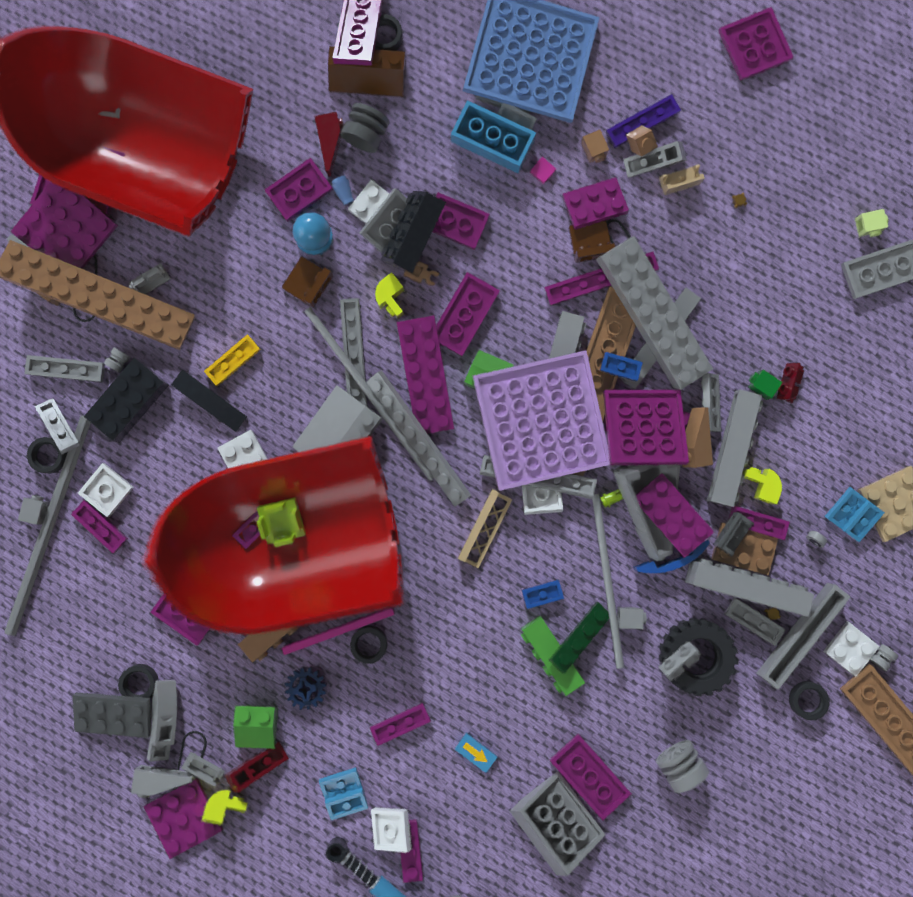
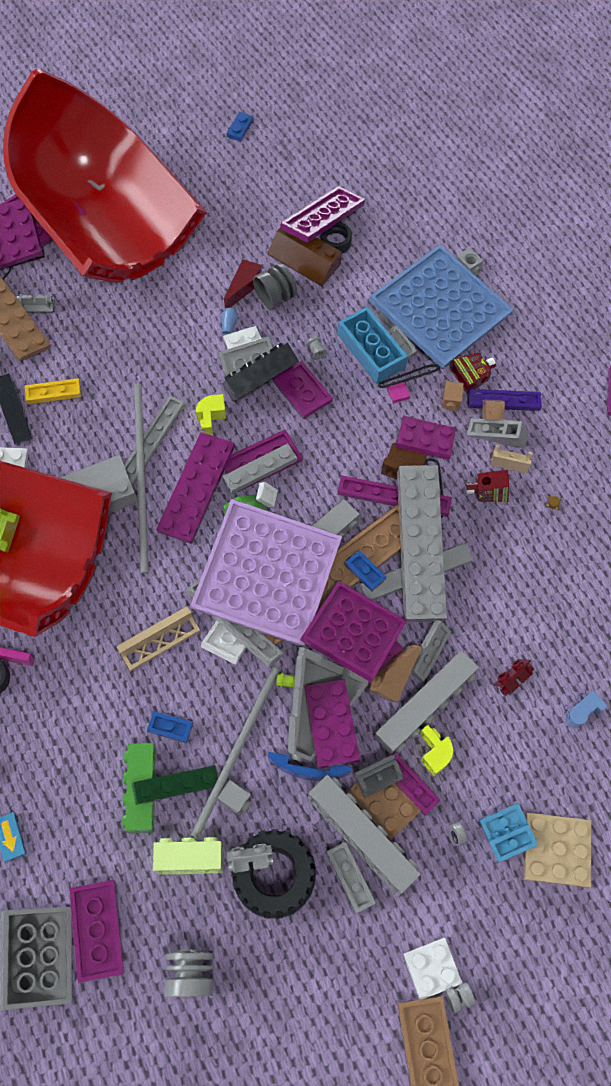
camera: 30 degrees right, 20 degrees down
(298, 189) = (195, 303): magenta plate -> none
(307, 281) = (154, 369): reddish brown bracket -> none
(312, 233) = (182, 335): dark azure tile -> none
(418, 438) = (154, 533): light grey plate -> none
(421, 273) = (245, 408): medium nougat plate -> none
(442, 169) = (316, 347): none -> light grey bush
(470, 325) = (259, 468): none -> light grey plate
(490, 345) = (266, 494): none -> white plate
(548, 151) = (410, 378): none -> black piece
(598, 108) = (472, 370): none -> dark red torso
(628, 685) = (188, 856): none -> yellowish green brick
(687, 216) = (491, 486): none -> dark red torso
(764, 384) = (487, 660): green brick -> none
(772, 613) = (373, 881): pearl gold piece -> none
(803, 635) = (389, 918): light grey brick -> none
(823, 706) = (375, 997): black tyre -> none
(861, 377) = (579, 714): none -> medium blue leg

